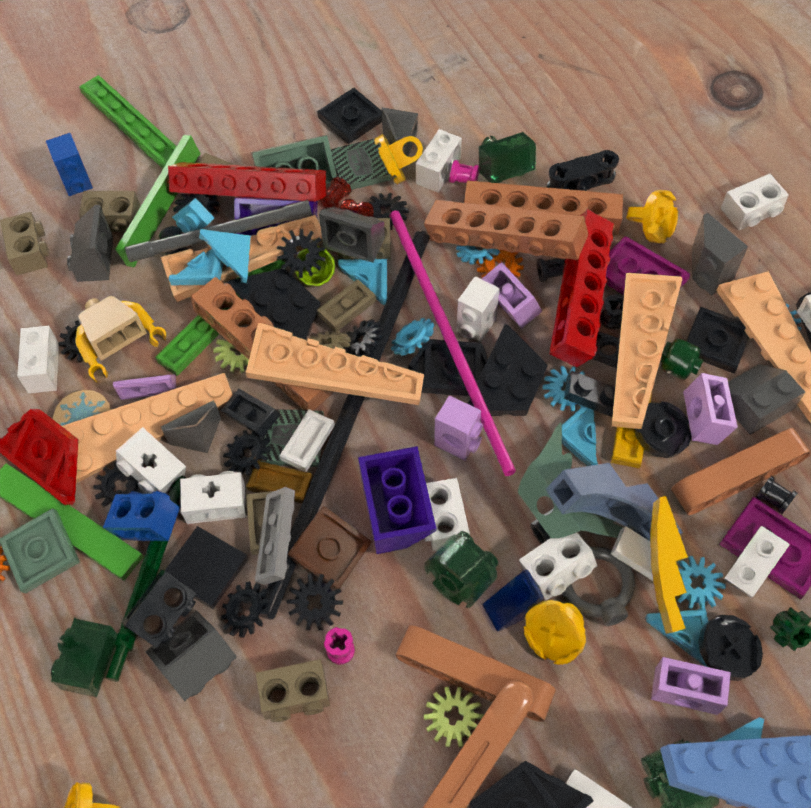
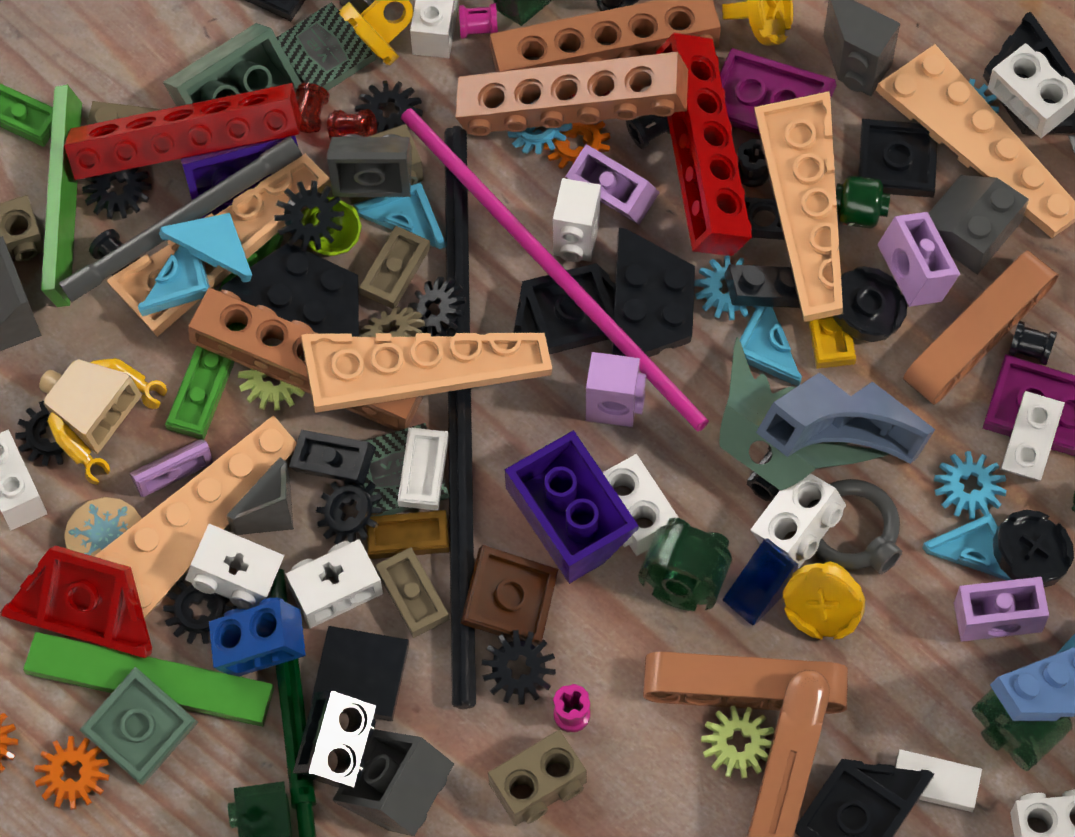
camera: 20 degrees left, 5 degrees up
(192, 217) = (131, 210): medium azure plate -> none
(234, 609) = (422, 710): black gear -> none
(275, 536) = (440, 603): light grey plate -> none
(421, 332) = (514, 270): medium azure gear -> none
(633, 551) = (898, 474): white tile -> none
(665, 552) = (922, 459): yellow slope -> none

